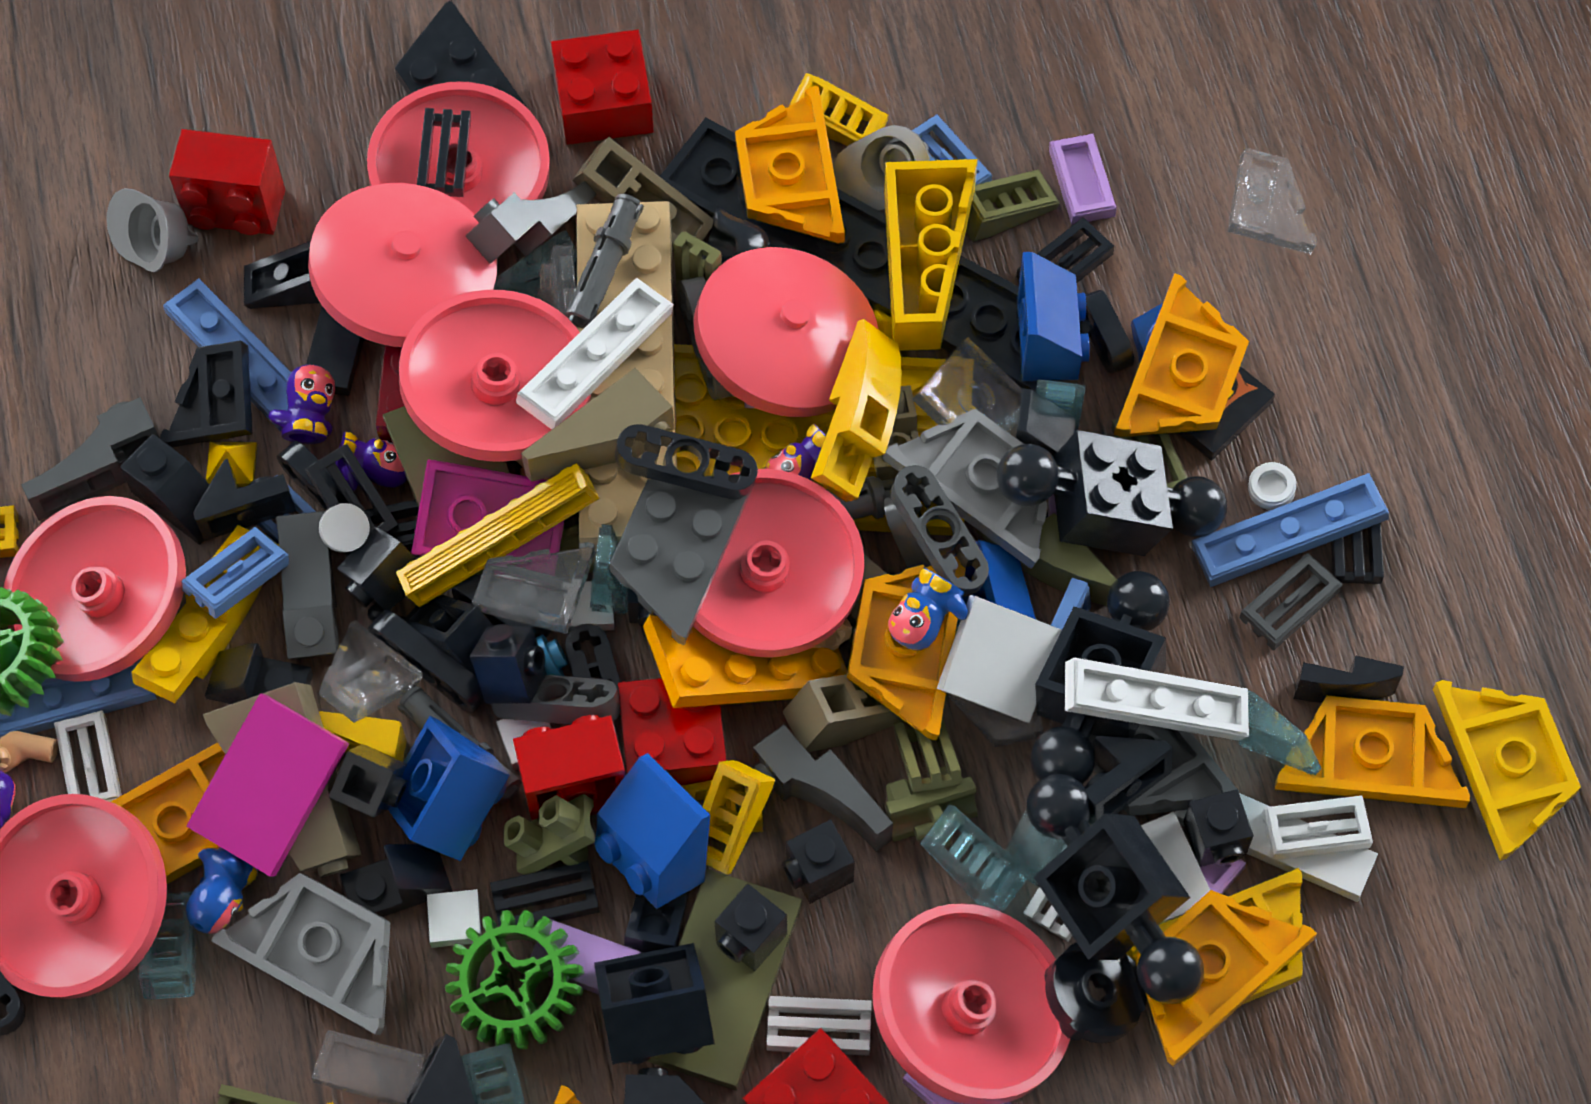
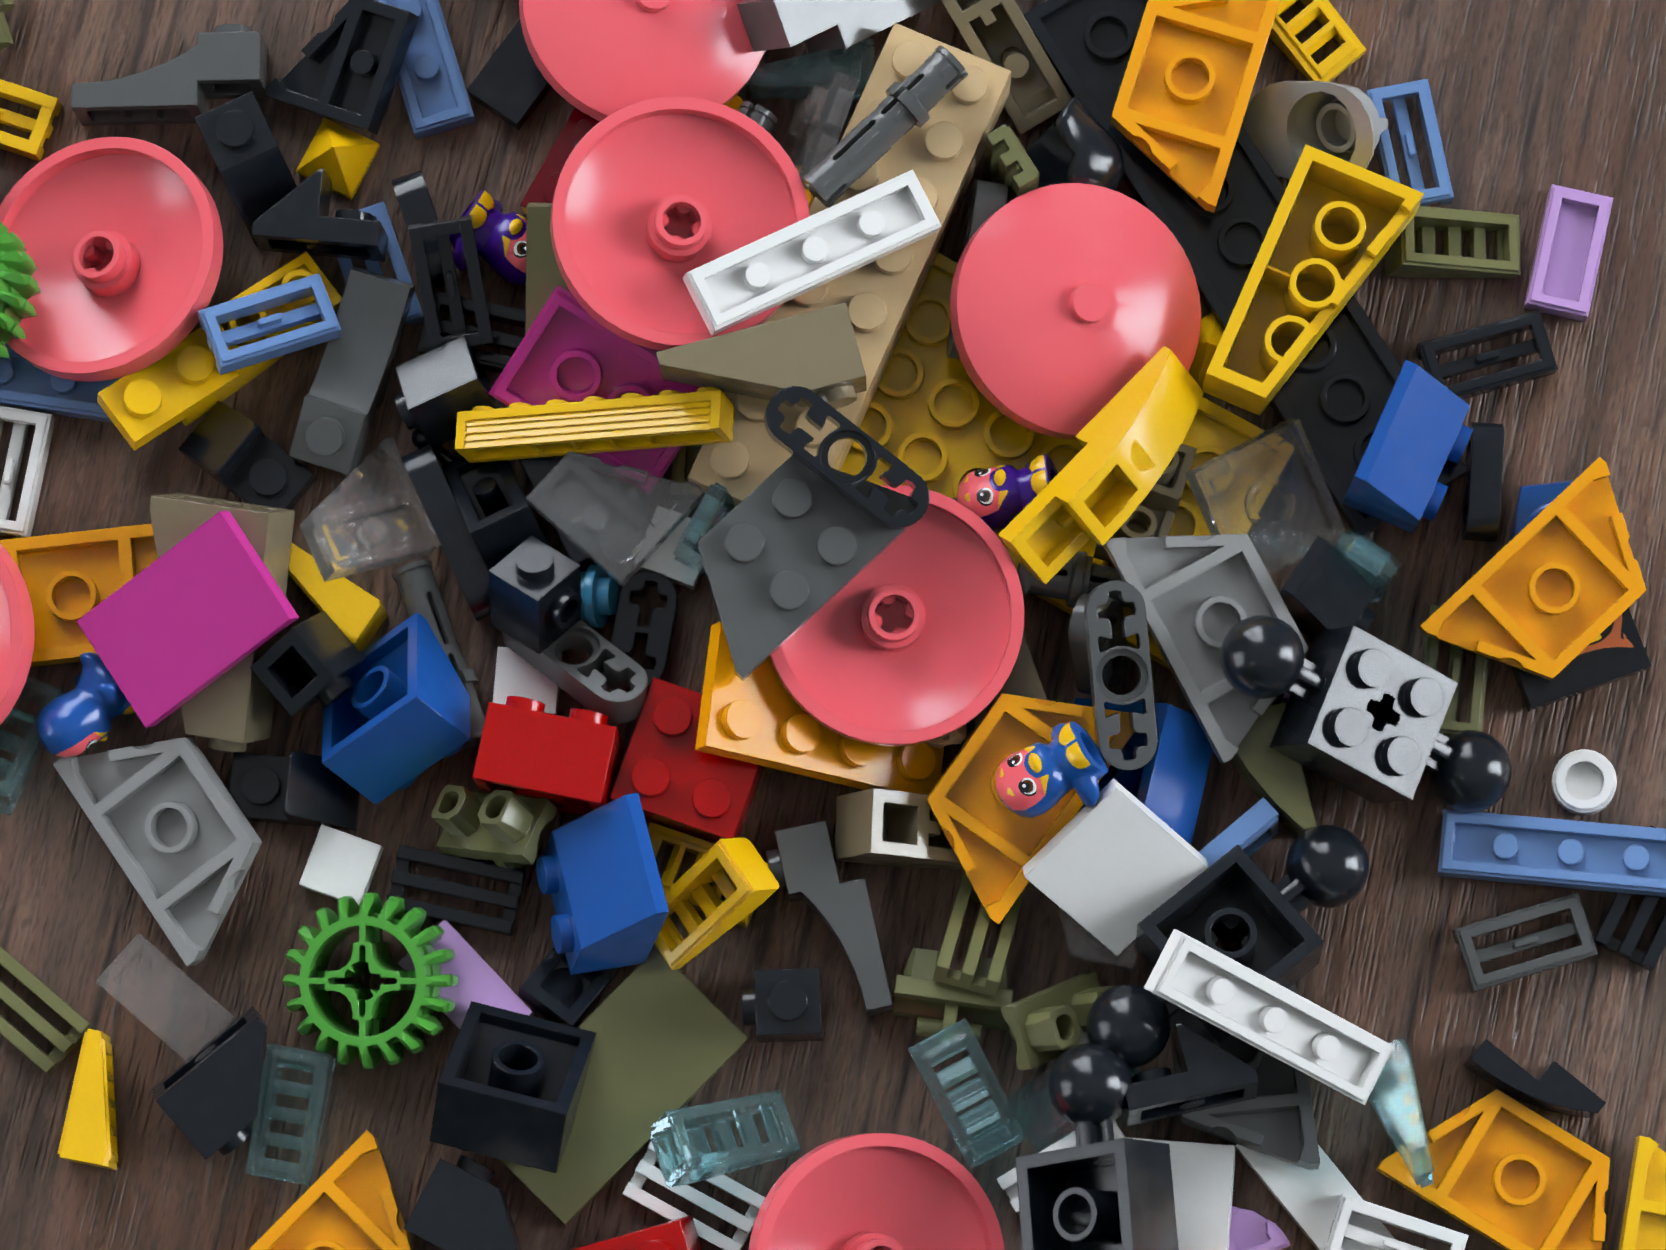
camera: 30 degrees right, 15 degrees up
(309, 400) = (460, 125): animal -> none
(344, 527) = (422, 323): white tile -> none
(750, 928) = (661, 1054): black brick -> none
(797, 993) = (684, 1149): none -> clear light blue slope
(1006, 785) = (1052, 1019): none -> olive hips
(1218, 828) = (1270, 1199): black brick -> none

